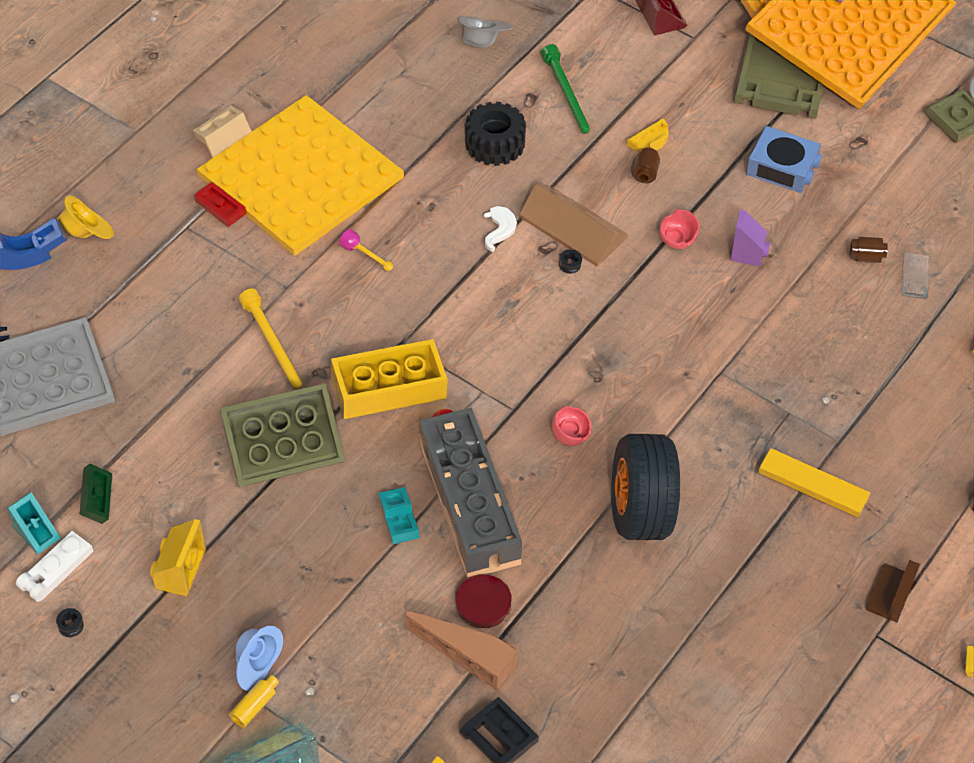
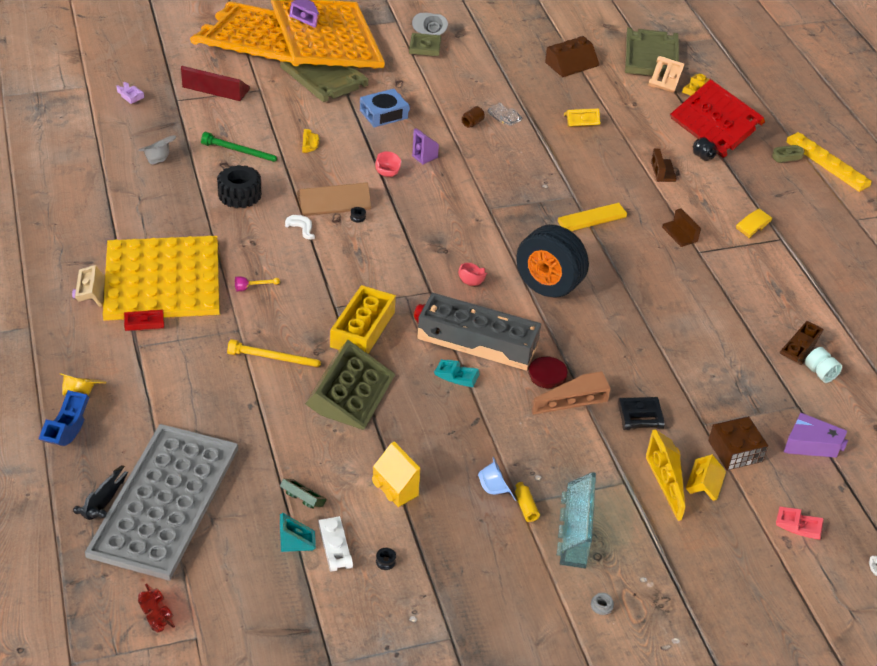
camera: 55 degrees left, 10 degrees down
(646, 165) = (329, 151): reddish brown brick -> none

